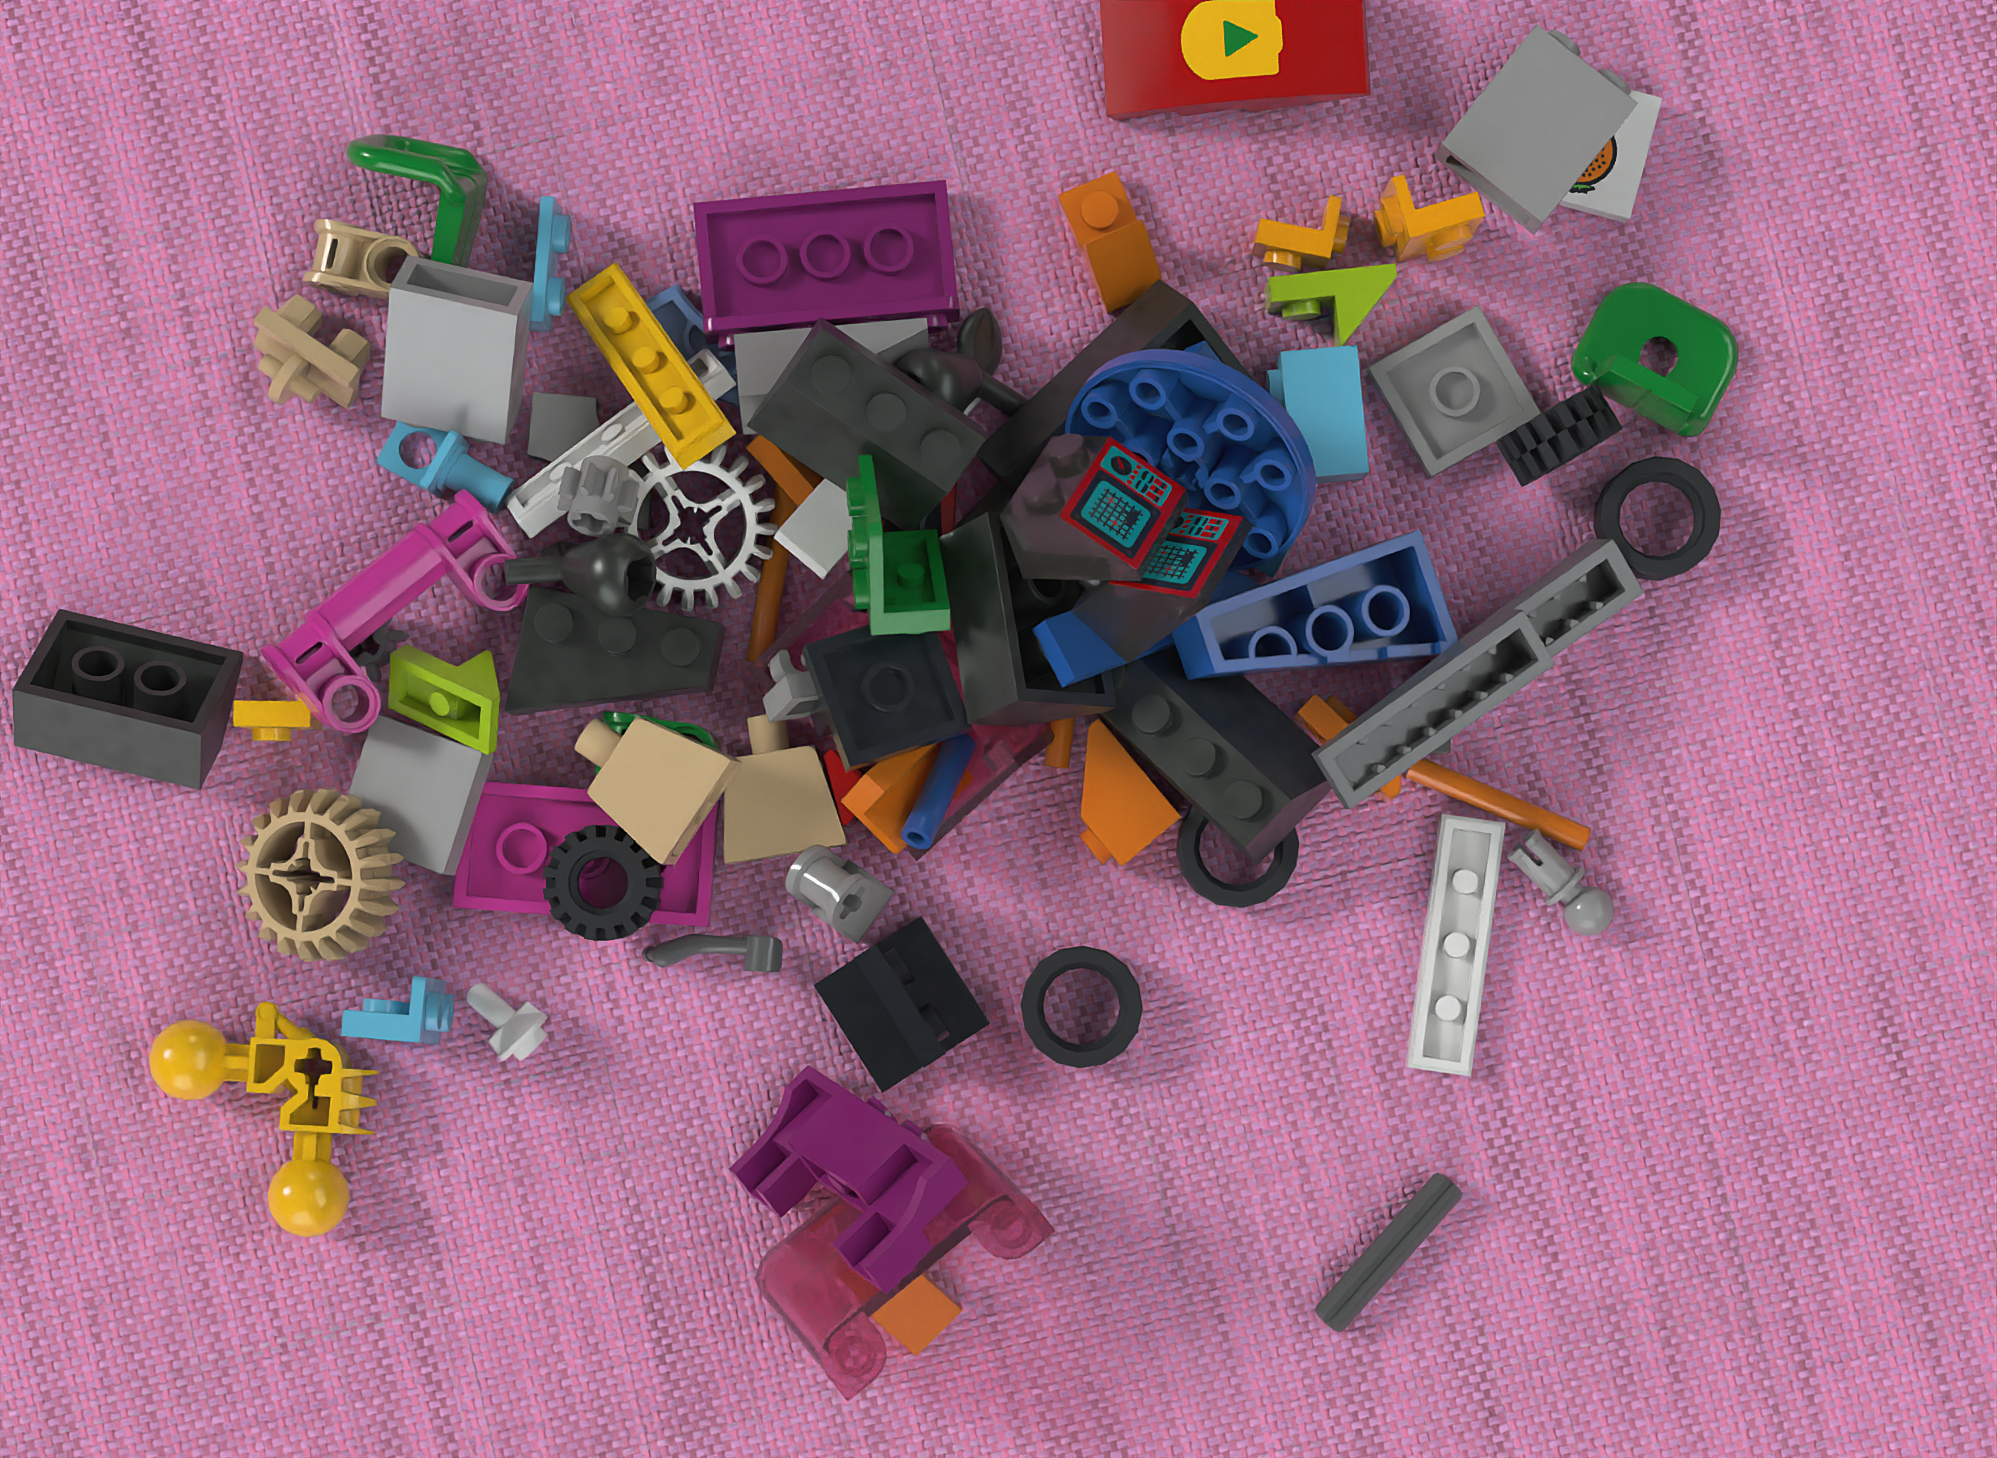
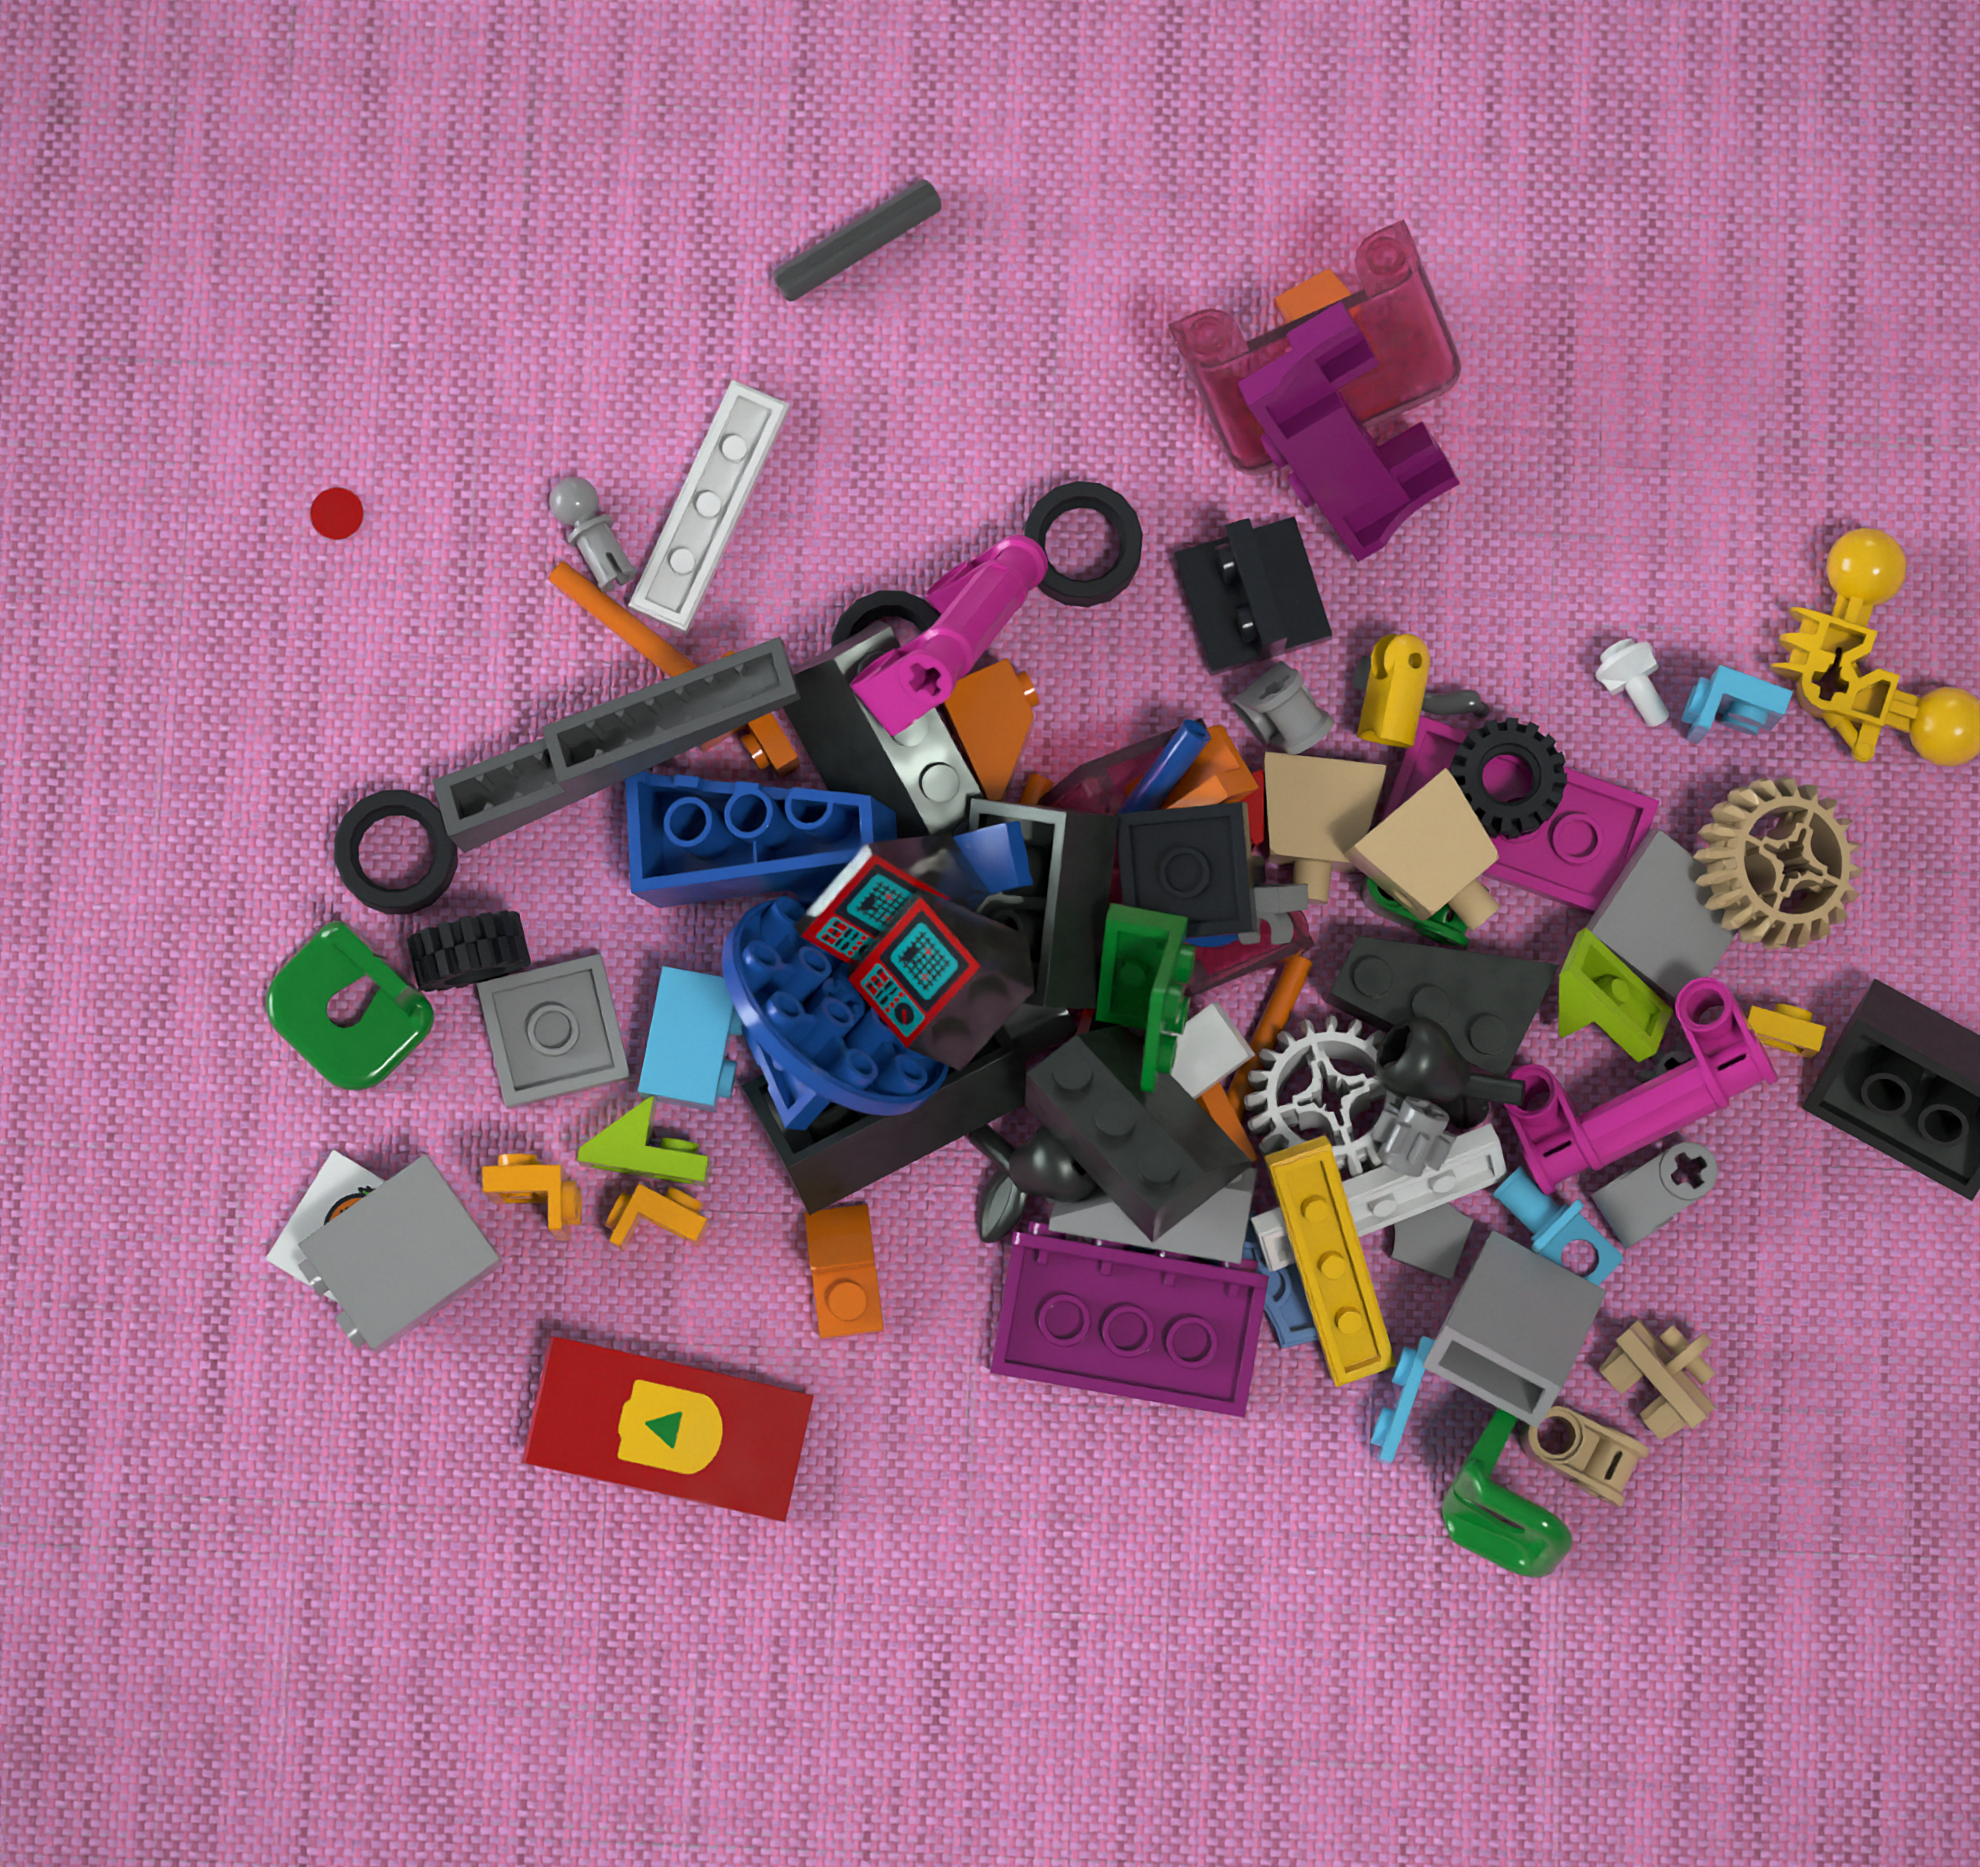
camera: 170 degrees left, 5 degrees down
(362, 523) = (1648, 1197): none -> light grey piece
(735, 940) = (1395, 691): none -> yellow piece
(1163, 913) = (973, 607): none -> dark pink piece
(1814, 838) = (336, 513): none -> red sticker

